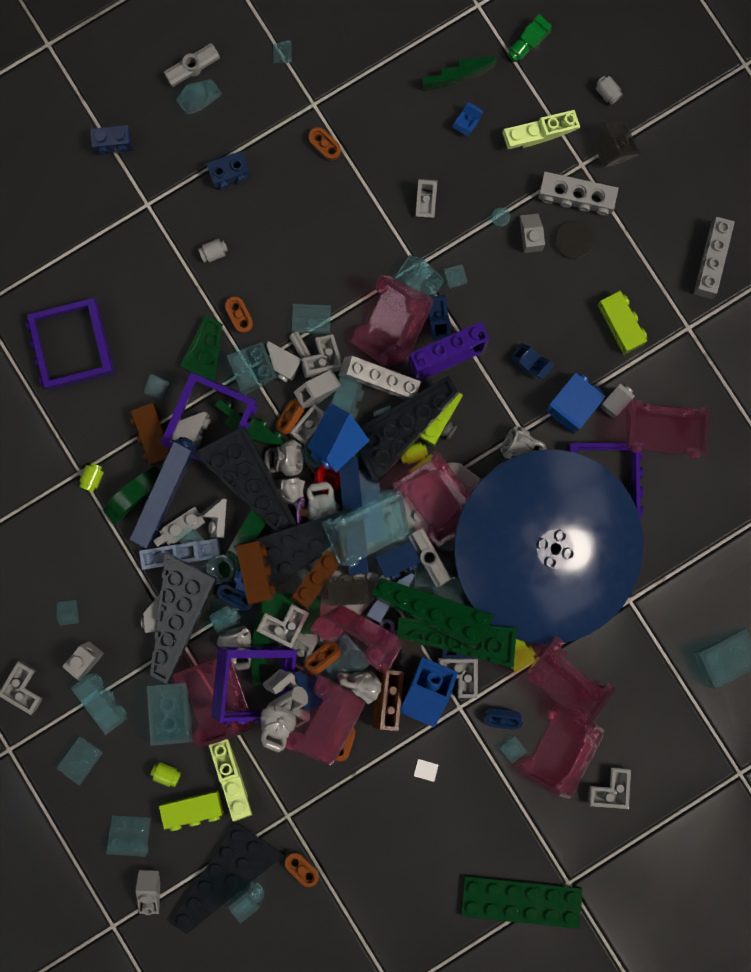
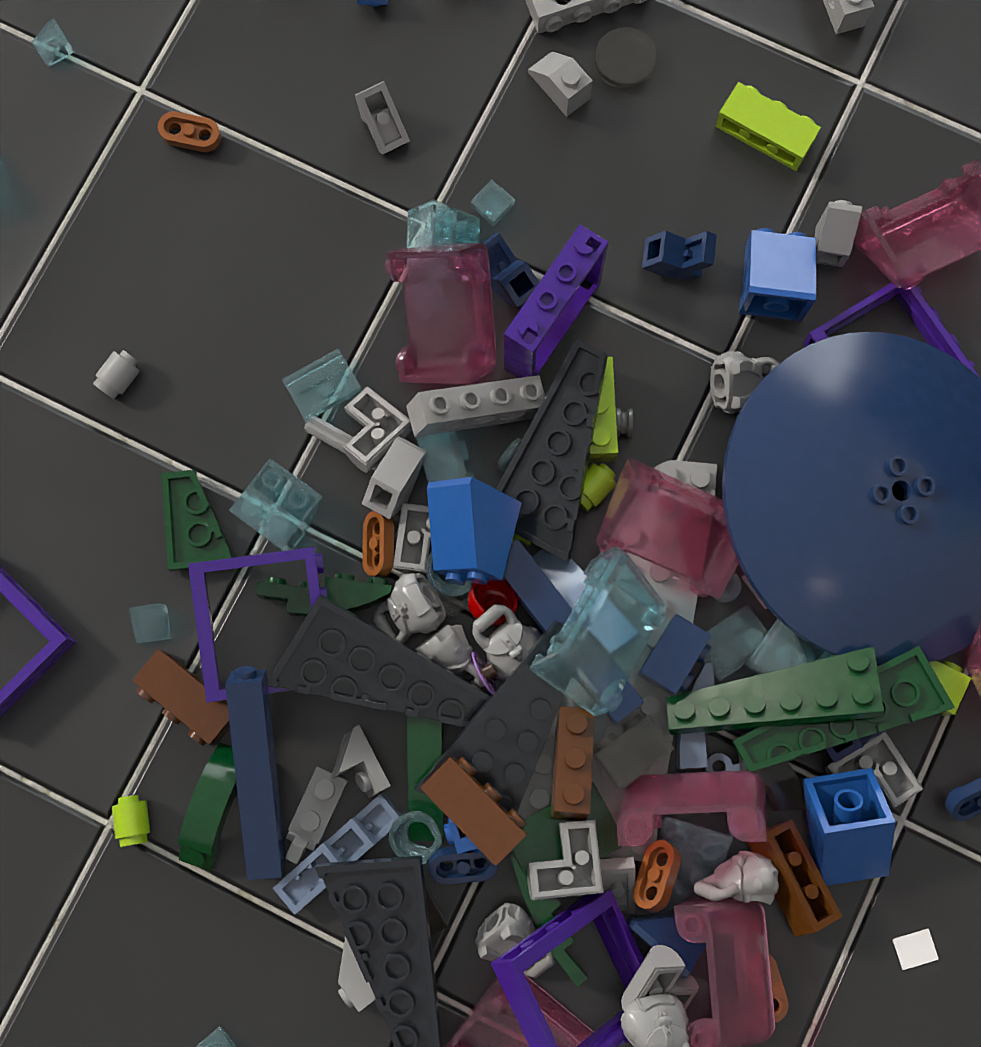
camera: 30 degrees left, 5 degrees down
(192, 427) = (242, 648): light grey slope -> none
(192, 536) = (341, 814): clear light blue slope -> none
(225, 618) = (469, 910): clear light blue slope -> none
(228, 170) = (71, 247): dark blue brick -> none
(239, 315) = (212, 444): dark orange plate -> none
(279, 681) = (617, 956): light grey bracket -> none
(284, 363) = (321, 470): light grey slope -> none
(436, 568) = (739, 634): light grey piece -> none
(501, 217) = (503, 85): clear light blue plate -> none

